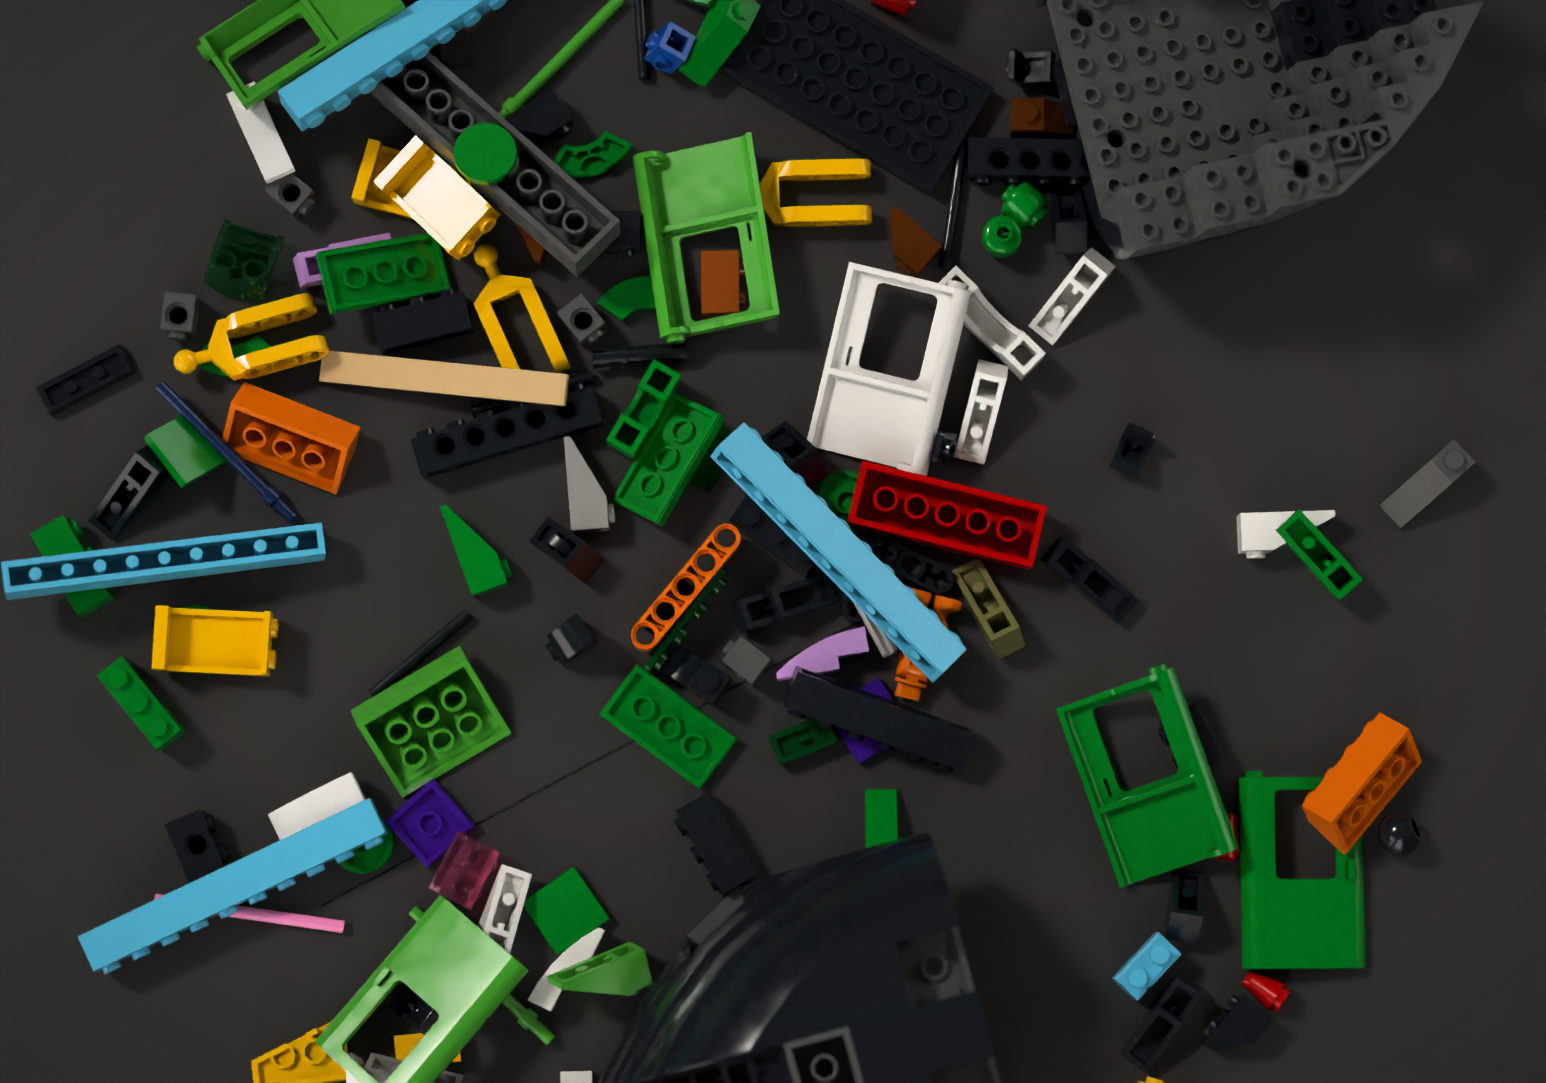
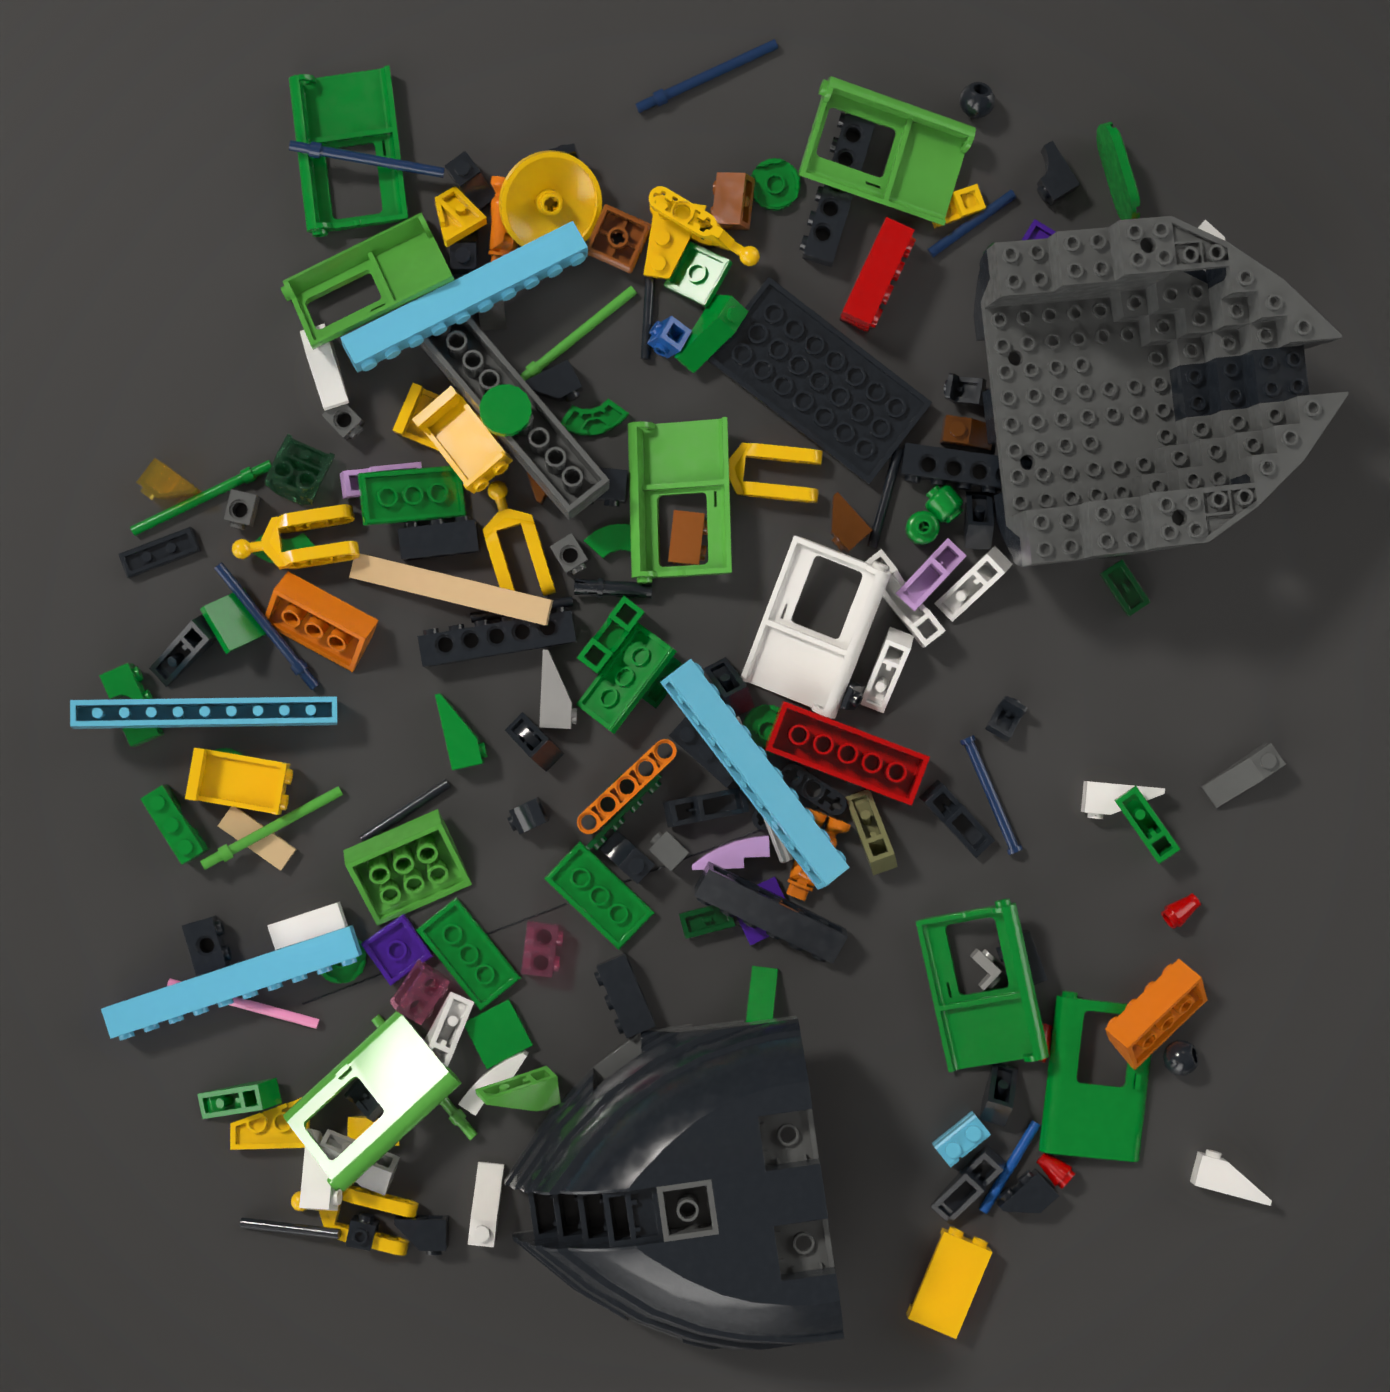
camera: 15 degrees right, 5 degrees up
(83, 295) = (164, 482): none -> clear yellow slope
(182, 274) = (246, 476): none -> green bar
(208, 729) = (227, 852): none -> bright green bar
(243, 708) = (270, 848): none -> tan tile
(258, 1029) = (240, 1098): none -> green slope
(517, 817) = (468, 953): none -> green tile
(597, 799) = (534, 947): none -> clear pink brick
(1019, 290) = (930, 574): none -> lavender slope
(1127, 546) = (991, 795): none -> dark blue bar
(1147, 747) = (986, 961): none -> light grey bracket
(1210, 994) = (1009, 1167): none -> blue bar
(1254, 278) = (1125, 588): none -> dark green plate
(1373, 657) = (1179, 911): none -> red cone
(1471, 972) = (1219, 1175): none -> white slope

